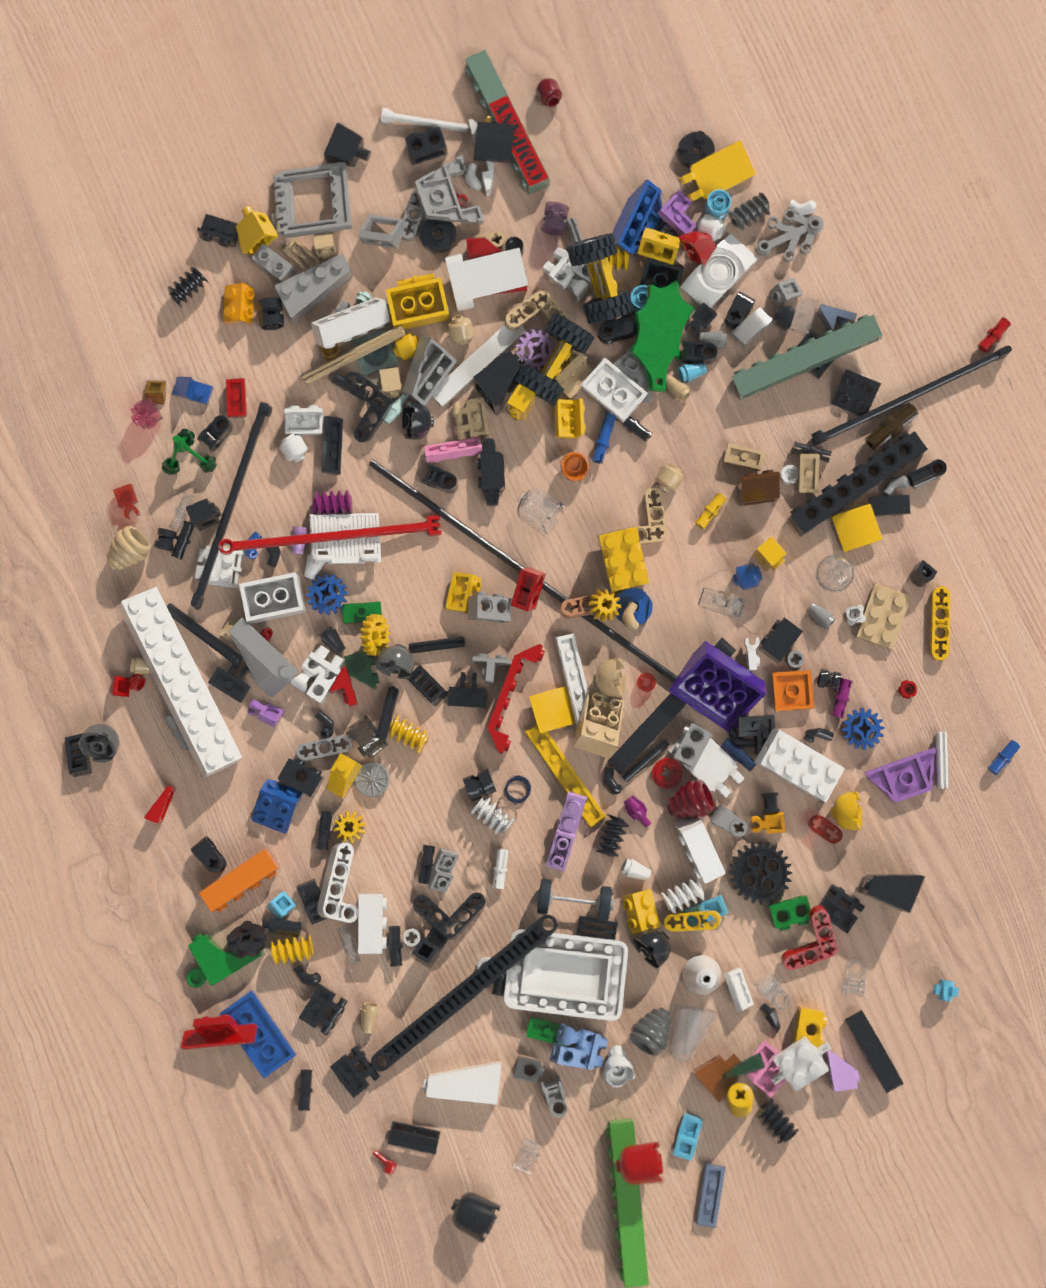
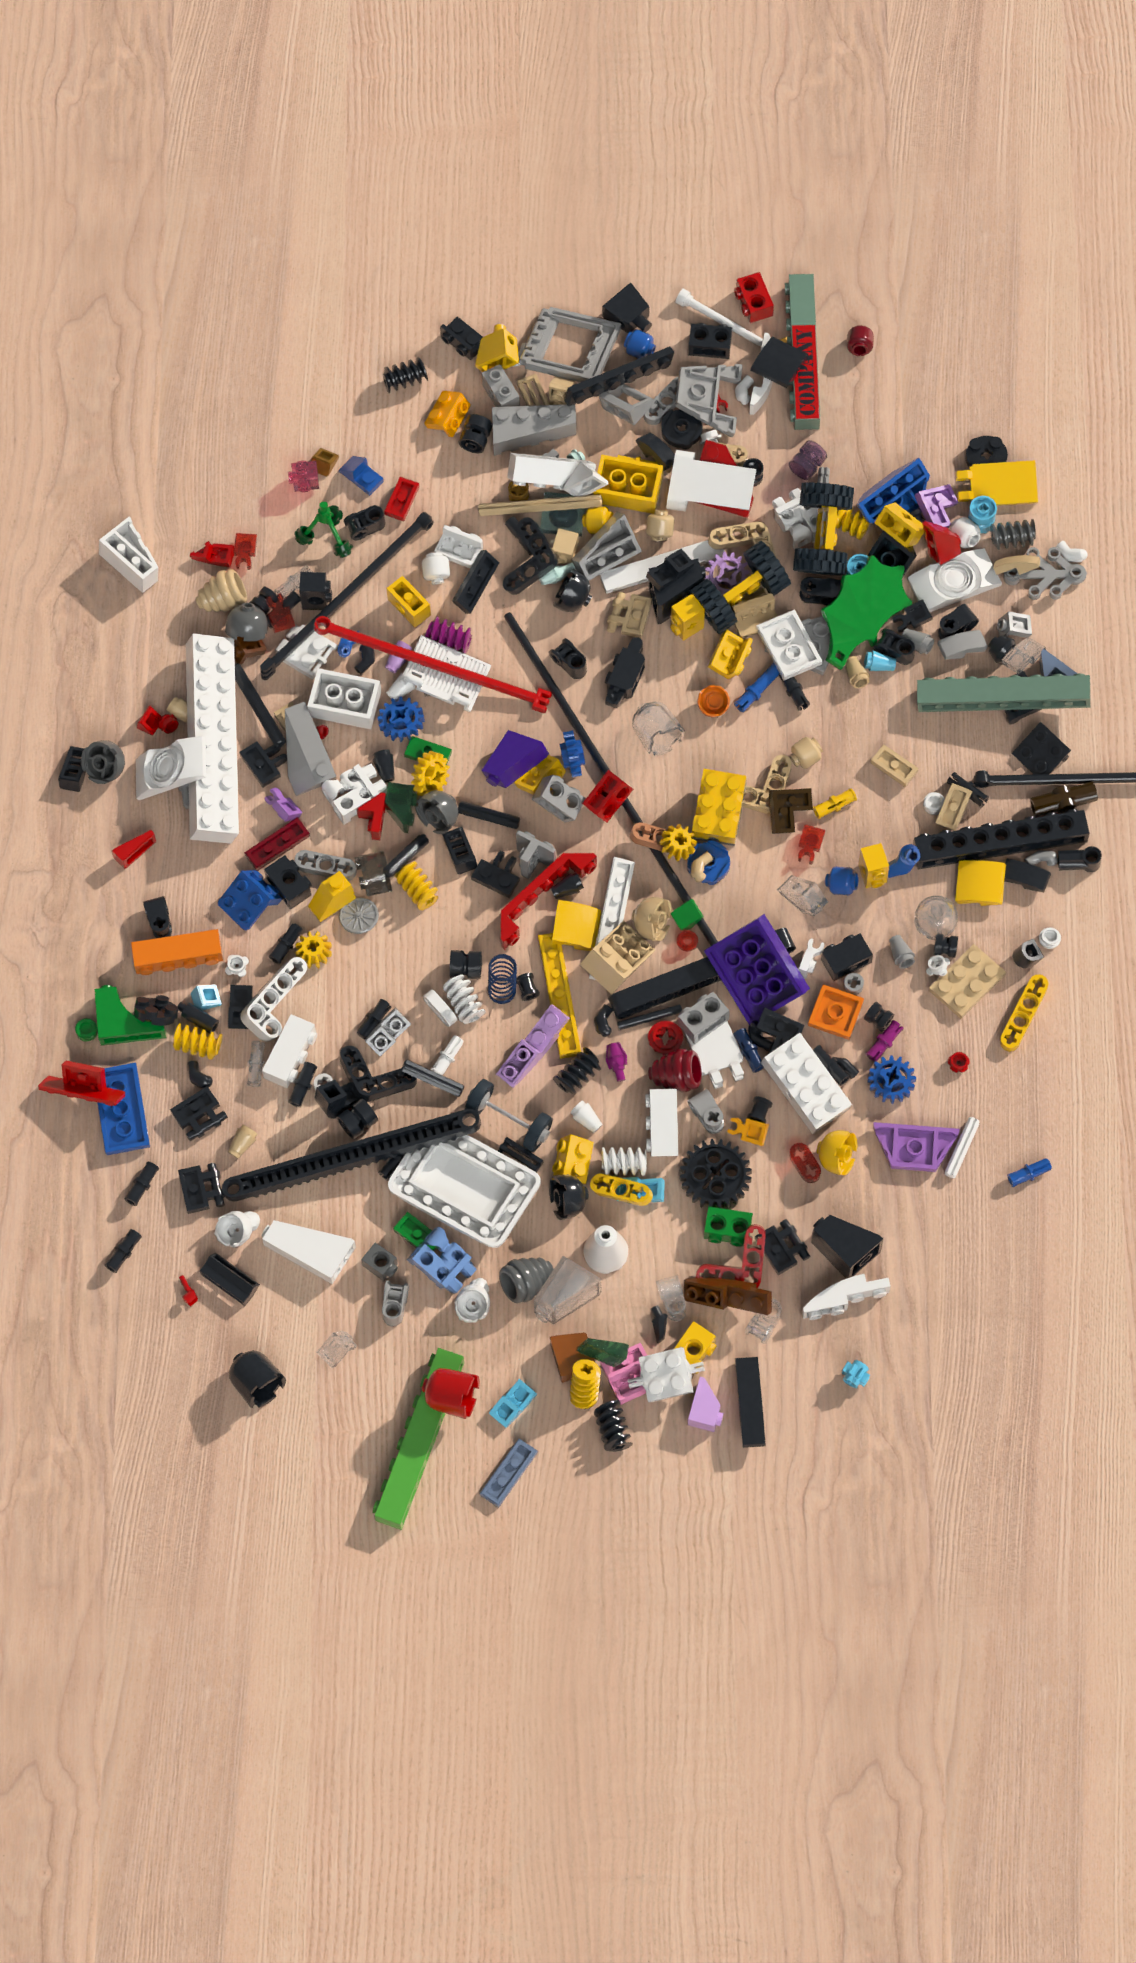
camera: 25 degrees right, 15 degrees down
(32, 549) = (129, 556): none -> white wedge
(104, 514) = (215, 554): none -> red slope
(158, 725) = (170, 766): none -> white slope
(161, 568) = (247, 622): none -> dark grey cylinder
(171, 586) = (247, 649): none -> reddish brown bracket
(186, 549) = (280, 617): none -> clear red plate
(276, 747) = (277, 844): none -> dark red tile
(285, 488) = (408, 601): none -> yellow brick
(288, 867) = (232, 961): none -> white plate
(317, 1154) = (123, 1251): none -> black pin
(327, 724) = (339, 844): black arm -> none
(365, 215) = (614, 378): none -> black plate
(369, 174) = (639, 344): none -> blue head
(383, 320) = (584, 481): none -> white slope
(394, 1099) = (228, 1223): none -> white piece
(424, 261) = (655, 447): none -> black slope
(435, 589) = (513, 758): none -> dark purple slope
(447, 88) = (758, 296): none -> red brick
(453, 449) = (596, 636): bright pink plate -> none
(453, 957) = (357, 1118): none -> black wheel
(465, 232) = (711, 436): none -> white plate
(475, 830) = (440, 1008): none -> white beam
(482, 565) = (572, 754): none -> blue gear
(492, 371) = (672, 569): none -> black slope
(497, 894) = (432, 1078): none -> axle
(529, 679) = (569, 885): none -> black cone
(537, 780) = (527, 986): none -> black bush
(637, 661) = (687, 915): none -> green slope
(673, 530) = (783, 805): none -> dark brown plate
(707, 551) = (811, 841): none -> clear red plate
(738, 989) = (637, 1279): white plate -> none
(758, 488) = (893, 798): reddish brown slope -> none
(769, 234) = (1023, 563): none -> tan slope
(793, 537) = (905, 861): none -> blue arm
(811, 741) = (831, 1065): none -> black pin
(813, 971) = (728, 1293): none -> reddish brown slope
(854, 595) = (946, 945): none -> black wheel
(901, 932) = (836, 1297): none -> white slope
(932, 550) = (1049, 938): none -> white plate

